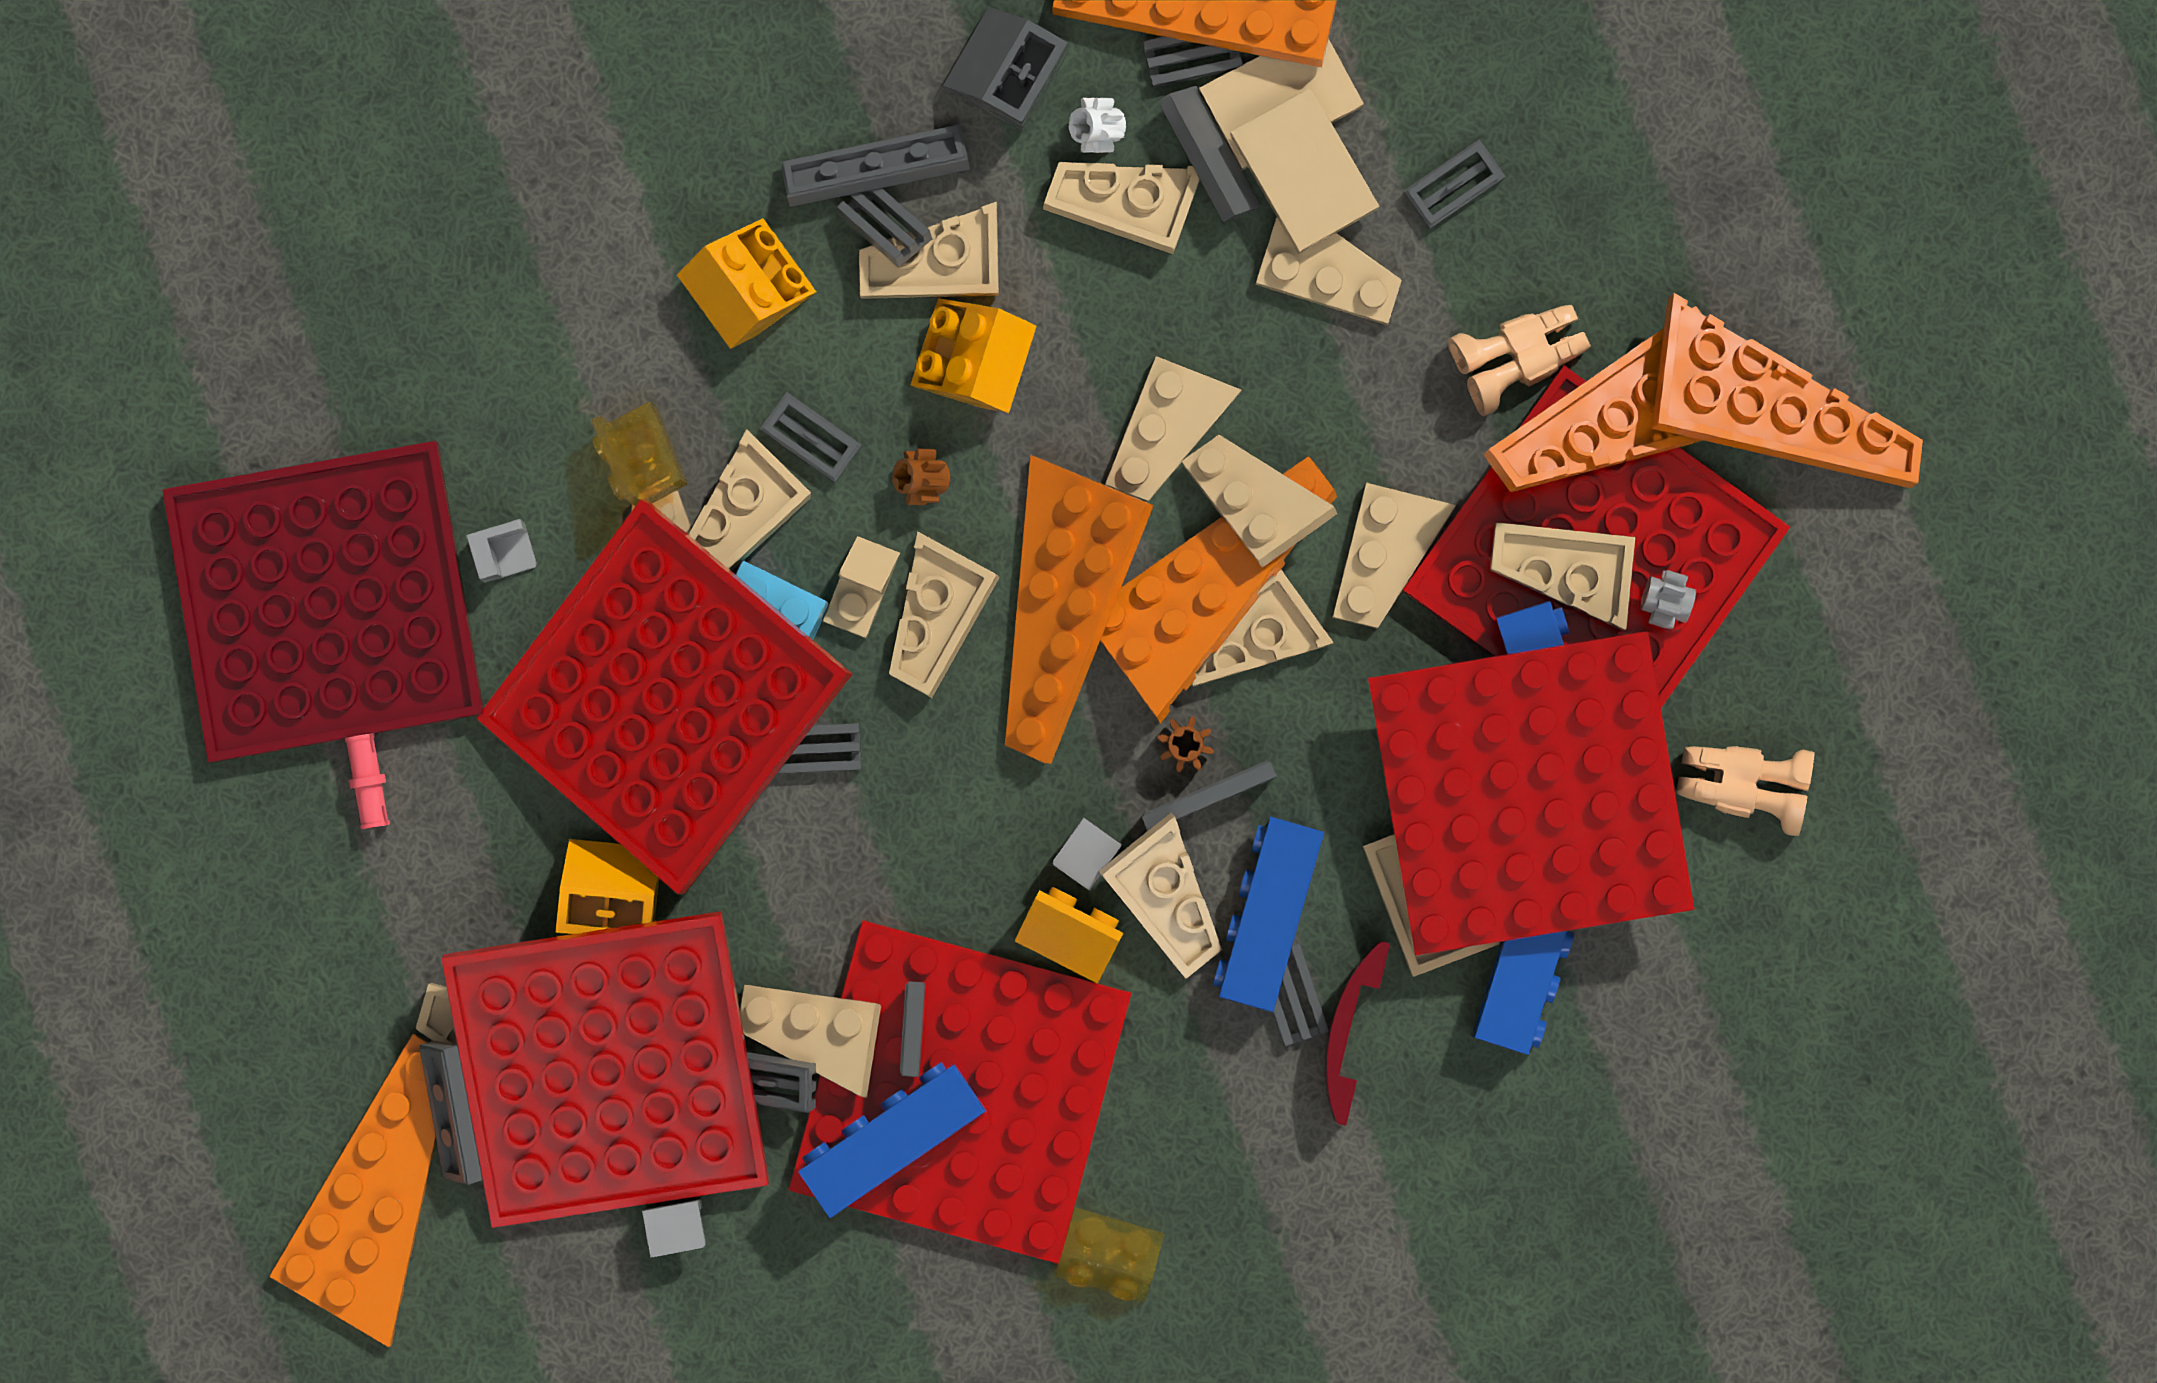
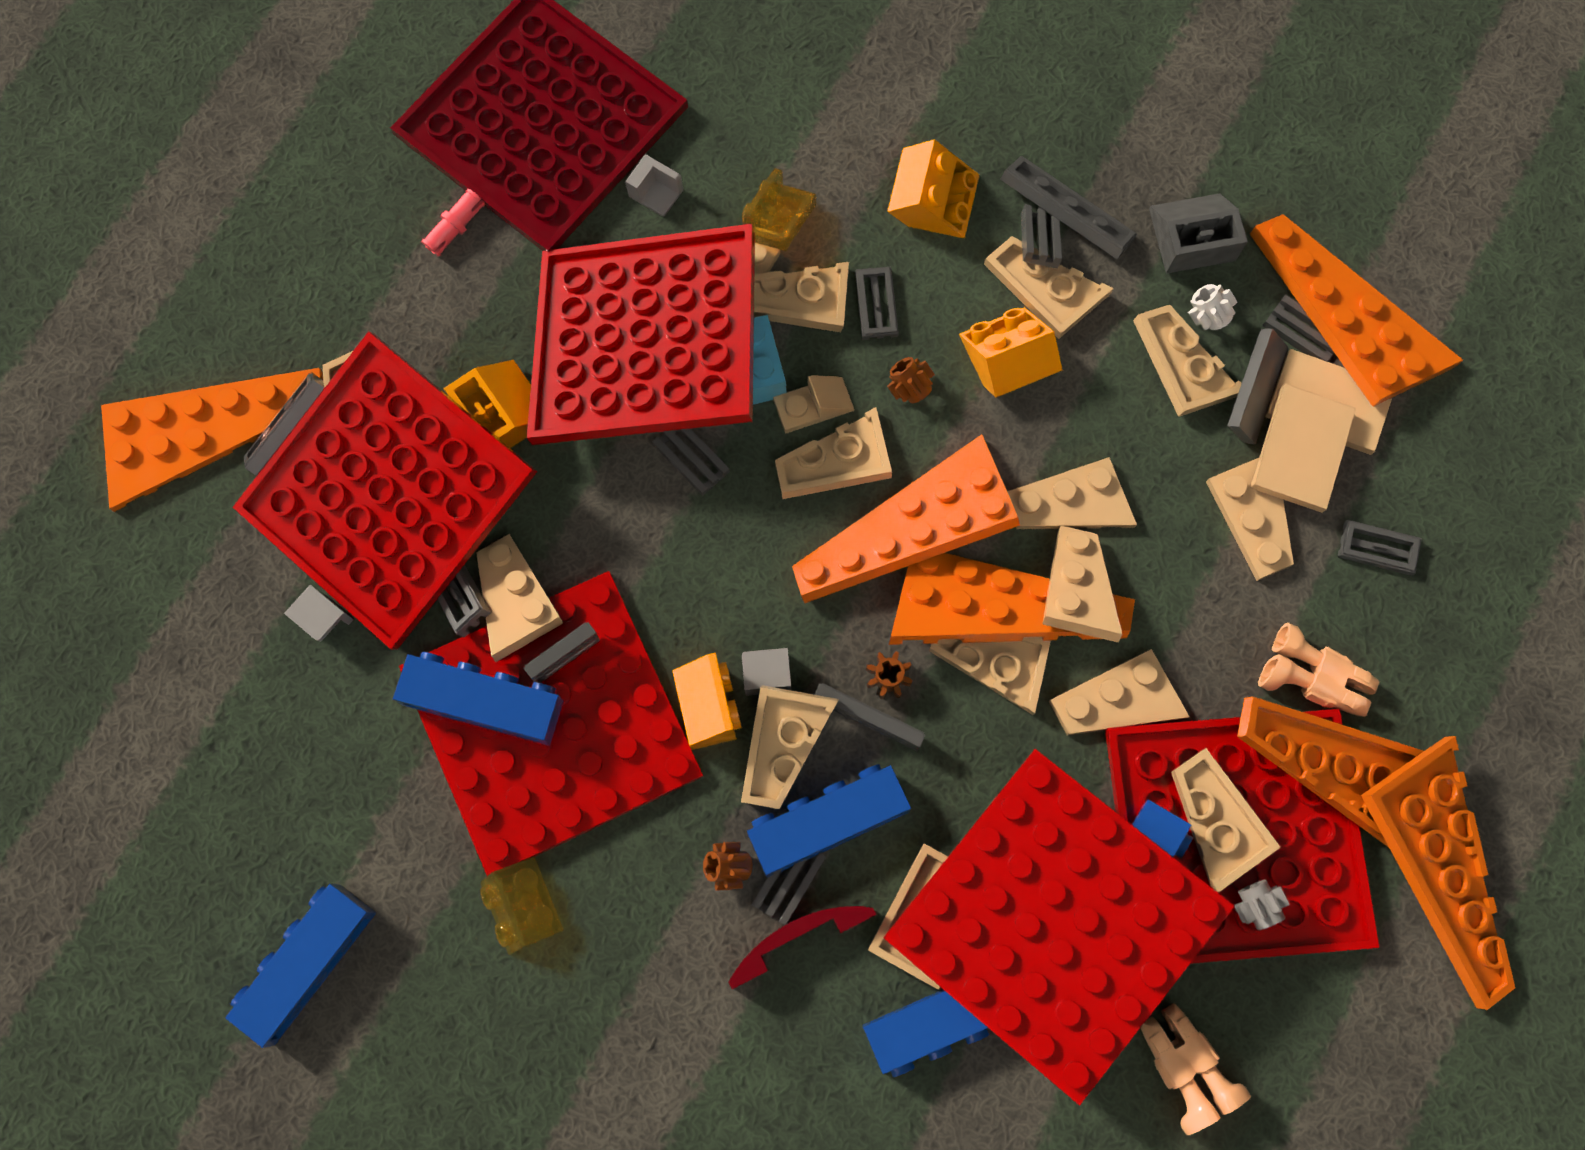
camera: 50 degrees right, 10 degrees down
(1233, 1039) = (727, 866): none -> dark orange gear

